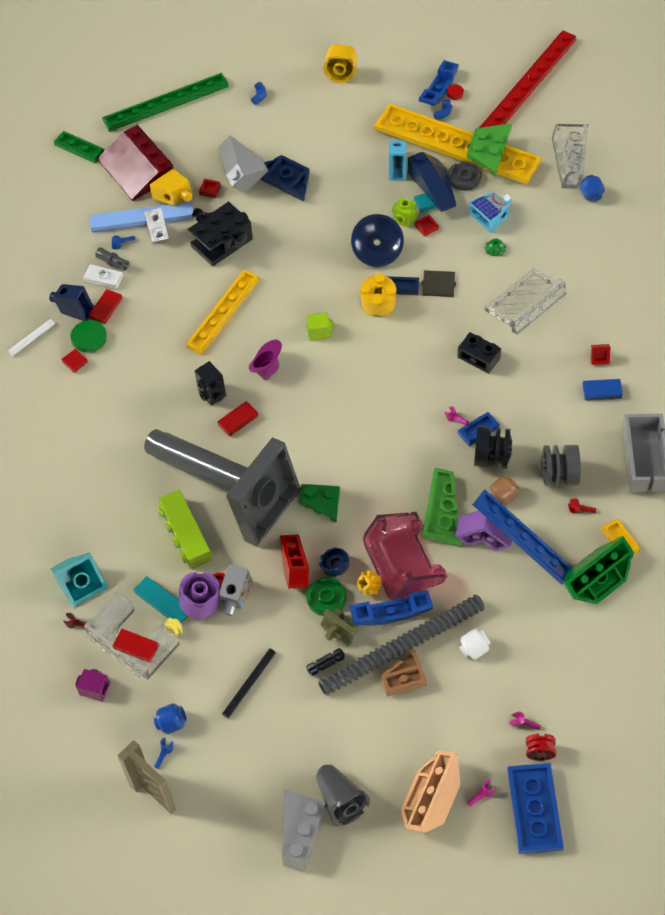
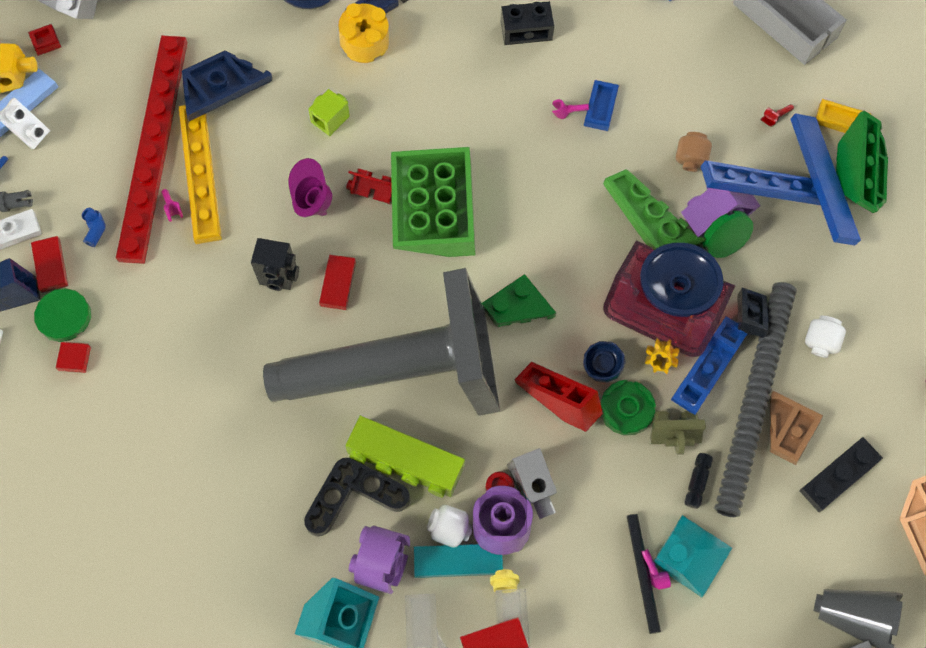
camera: 45 degrees left, 10 degrees up
(122, 565) = (380, 558): none -> medium lavender brick
(145, 302) = (95, 224): none -> blue arm
(148, 523) = (356, 484): none -> black beam
(170, 578) = (449, 526): none -> white head
(190, 319) = (171, 207): none -> dark pink hand
(210, 282) = (152, 151): none -> red plate
(220, 232) = (112, 81): black torso -> none
(252, 691) = (659, 580): none -> dark pink hand
(275, 270) = (219, 82): none -> dark blue wing
(282, 693) = (692, 556): none -> teal slope
(309, 386) = (364, 182): none -> red hinge
(325, 411) = (433, 201): none -> bright green slope
(409, 722) = (841, 474): none -> black plate
(419, 540) = (684, 267): none -> dark blue dish
(443, 598) = (752, 312): none -> black plate
(472, 546) = (728, 234): none -> green tile
(492, 447) = (644, 113): black wheel -> none
(561, 465) = (728, 82): dark grey wheel -> none
(564, 559) = (825, 180): none -> blue tile

